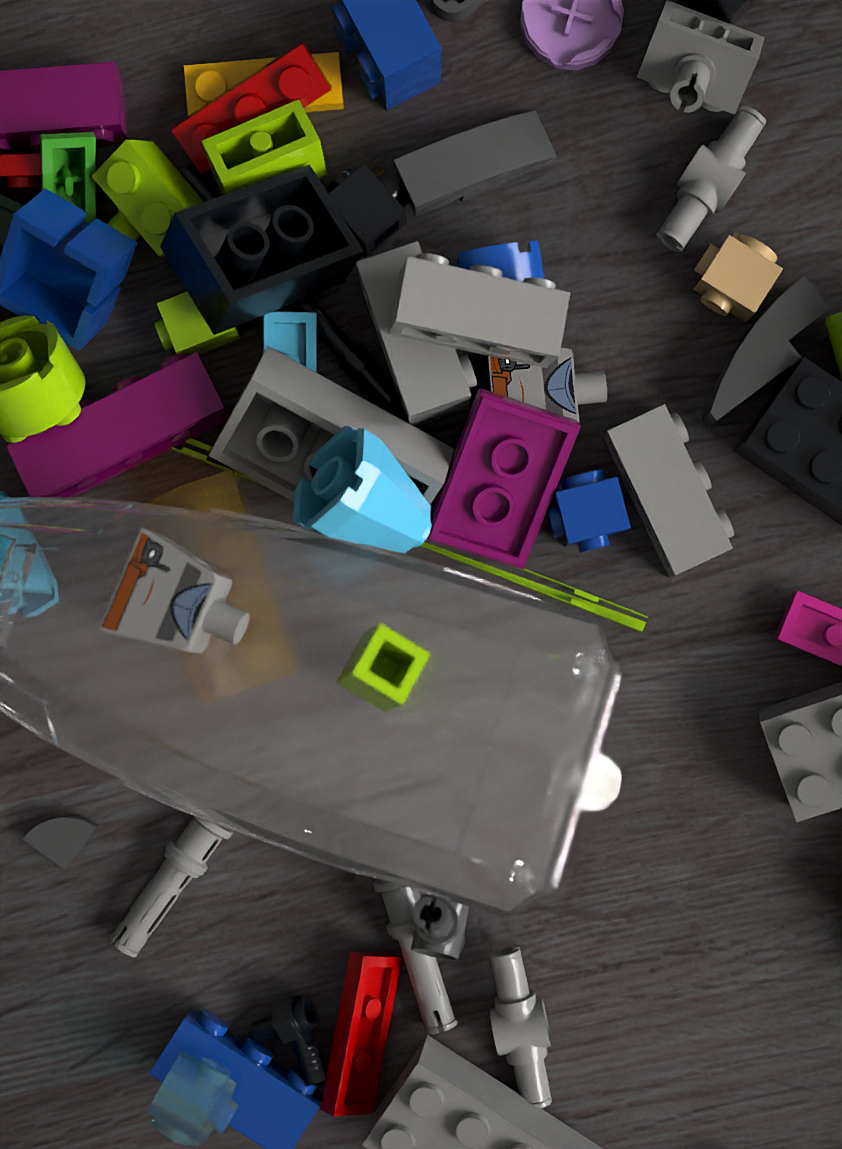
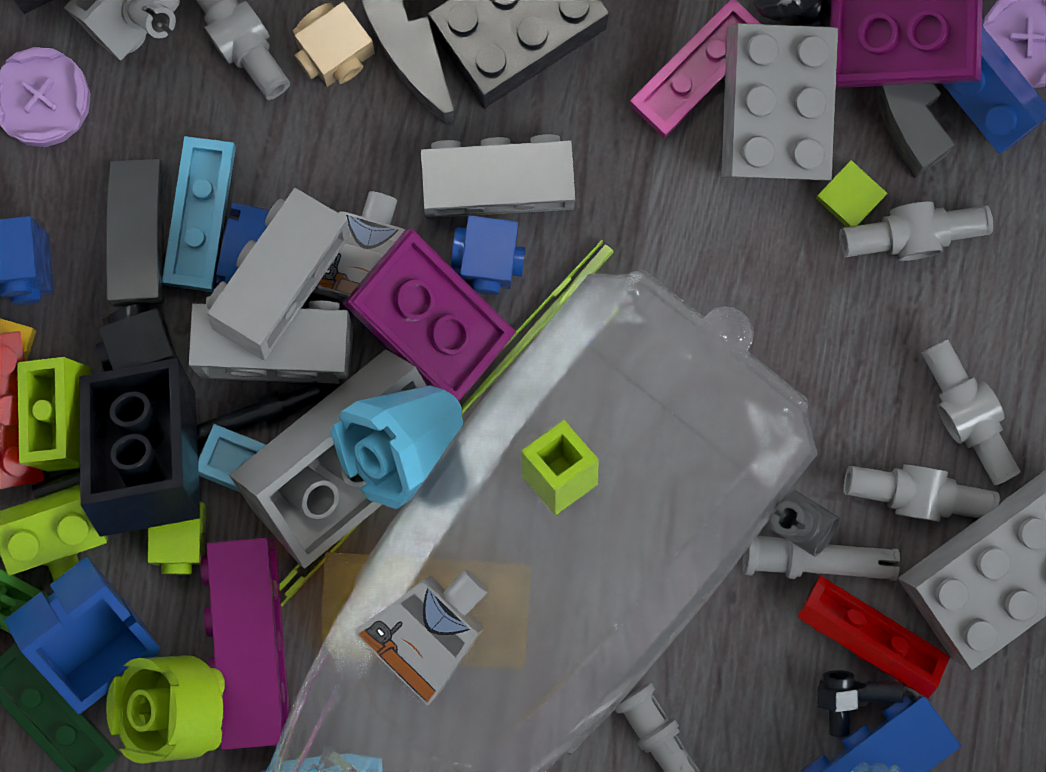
camera: 75 degrees left, 5 degrees down
(518, 214) = (198, 214): none -> medium azure plate
(620, 1046) = (971, 412): none -> light grey pin
(780, 924) = (916, 231): none -> light grey pin
(790, 846) = (851, 195): none -> lime tile

